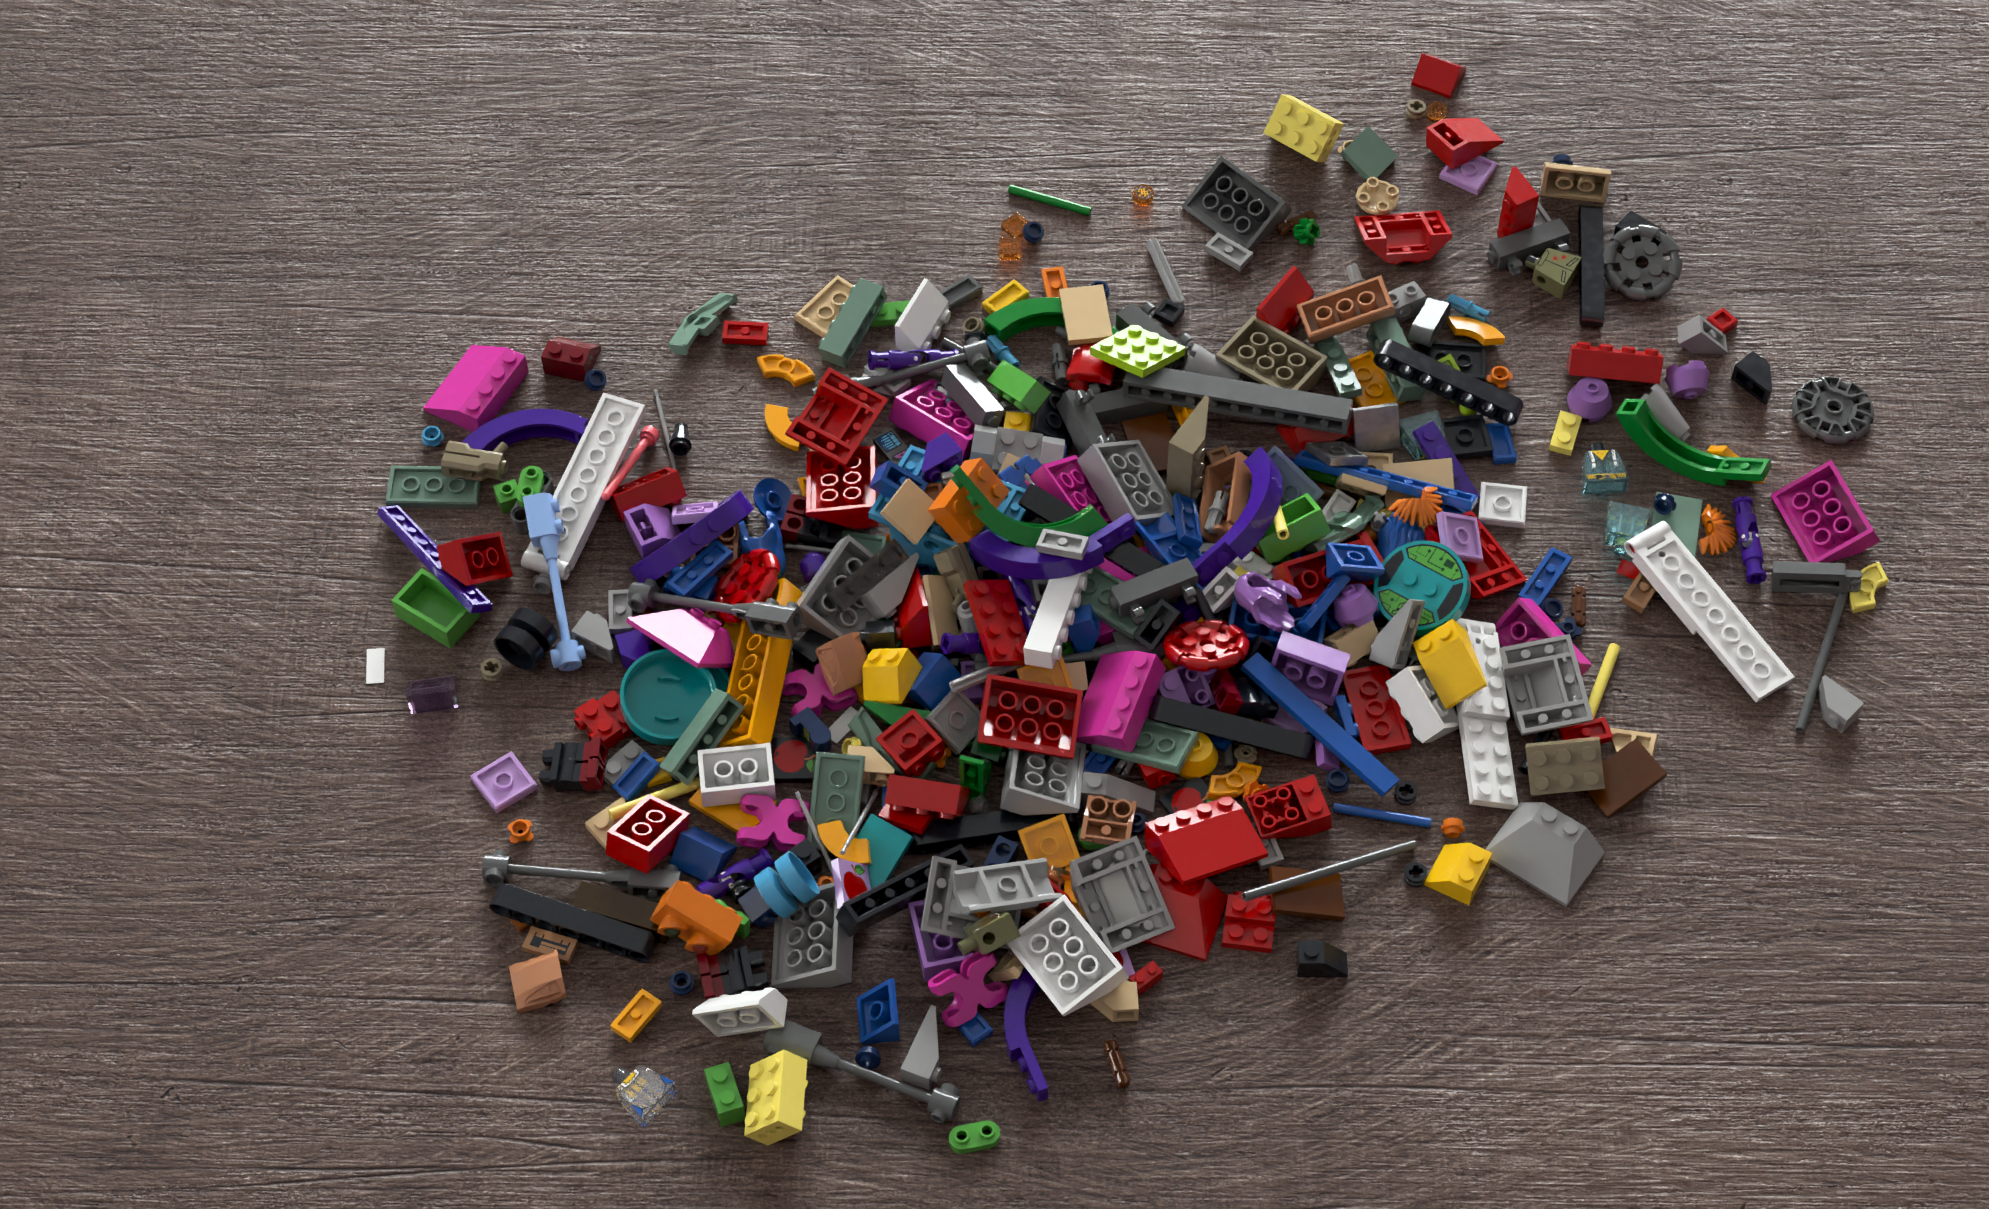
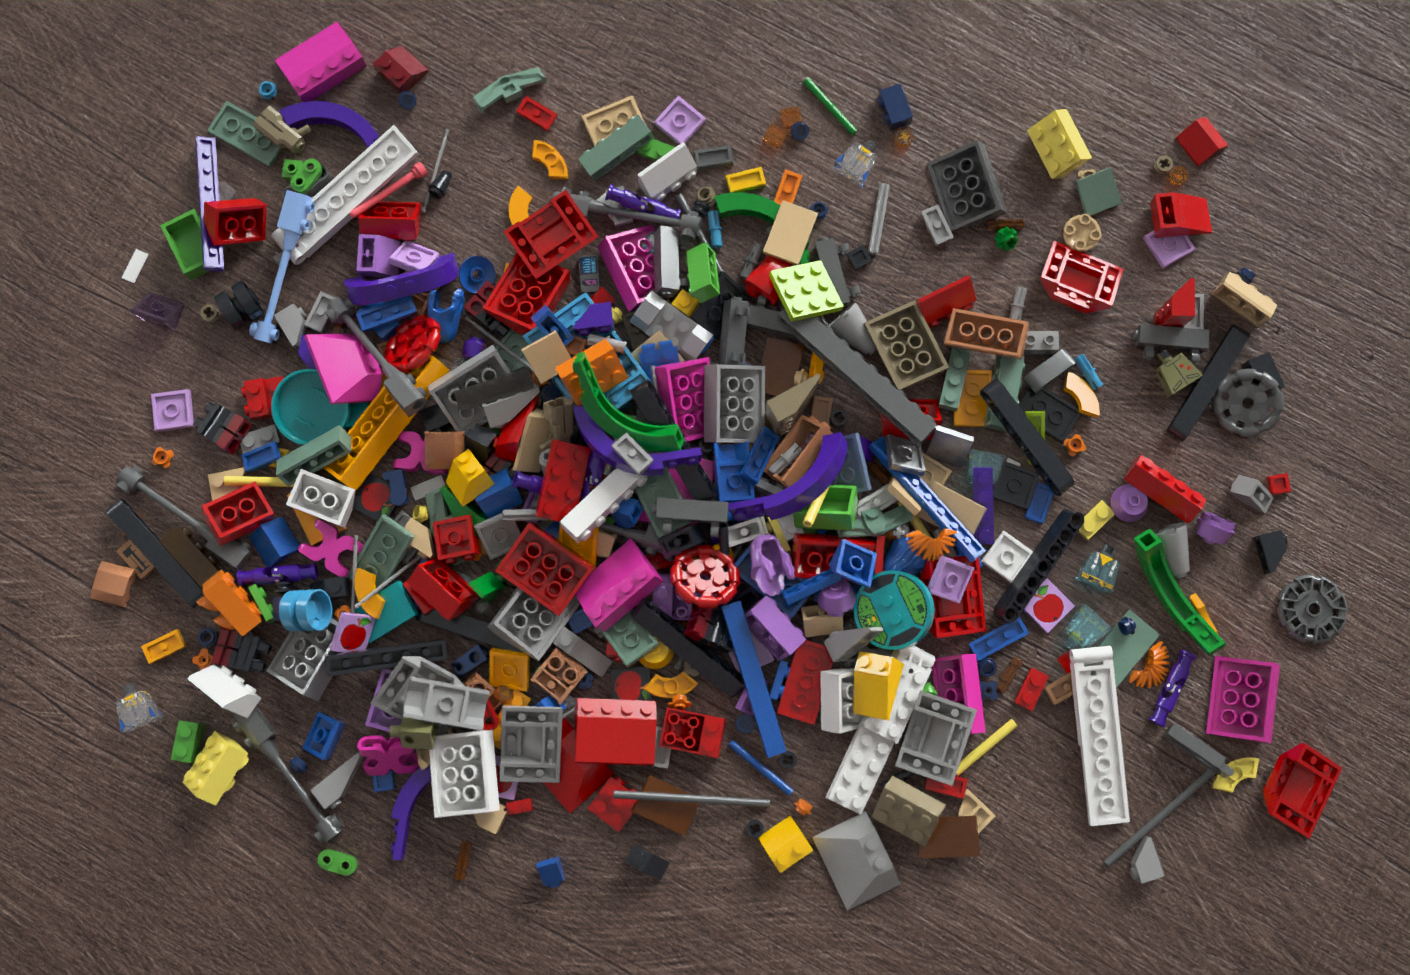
camera: 30 degrees right, 25 degrees up
(685, 1010) = (204, 653): none -> orange plate
(902, 276) = (680, 121): none -> lavender tile
(1111, 233) = (857, 162): none -> clear torso
(1117, 170) = (894, 106): none -> dark blue brick
(1223, 1016) = (551, 871): none -> blue slope
(1539, 493) = (1040, 557): none -> black beam
(1572, 528) = (1048, 606): none -> tile
(1610, 610) = (1031, 689): none -> red plate
(1937, 562) = (1300, 787): none -> red slope

